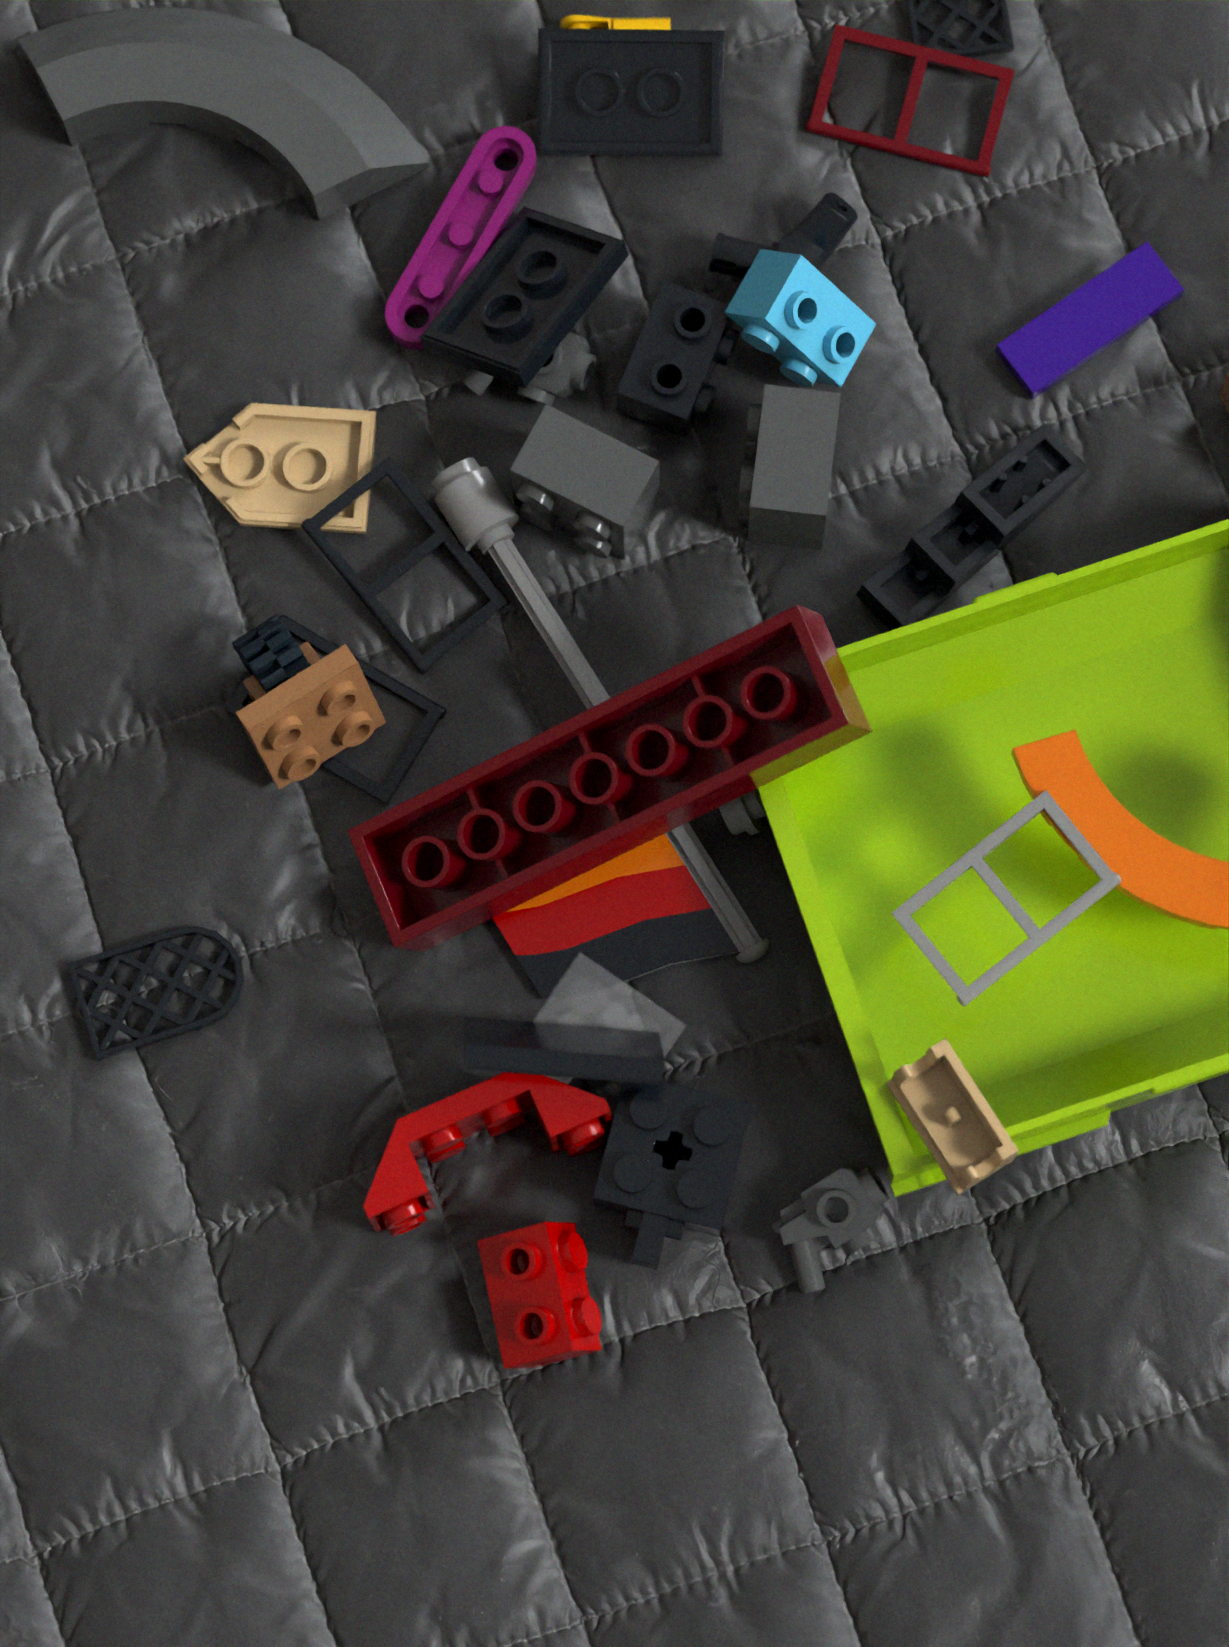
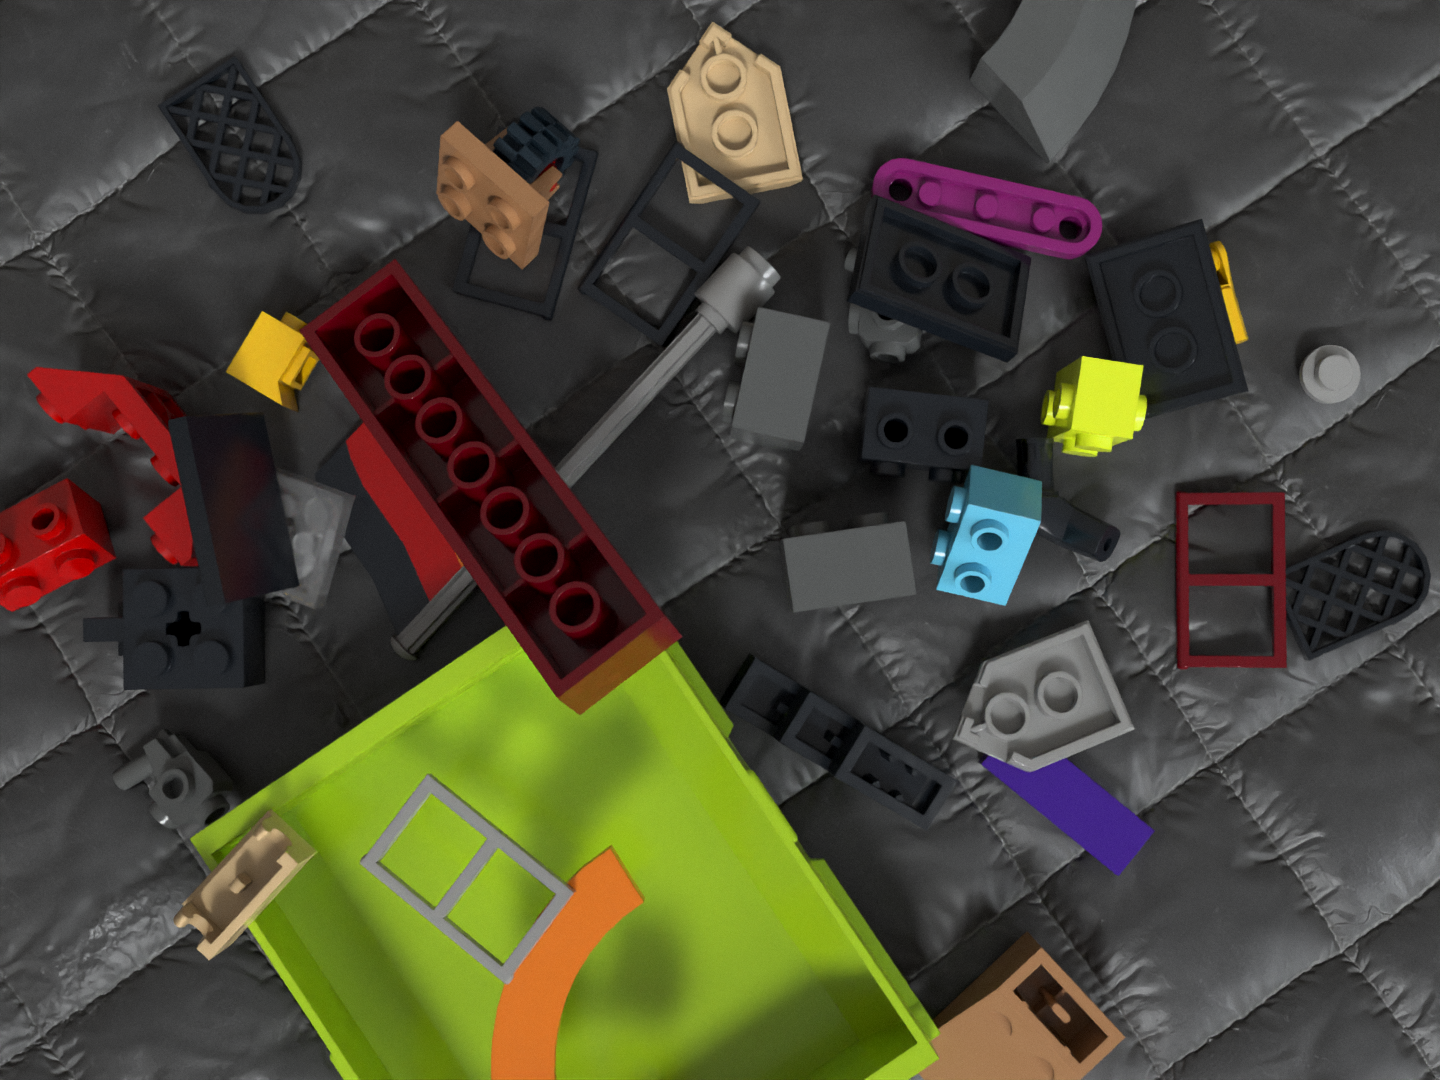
camera: 75 degrees right, 10 degrees up
(410, 996) = (275, 359): none -> yellow window
(697, 182) = (1094, 405): none -> neon yellow brick
(984, 313) = (1043, 701): none -> light grey tile

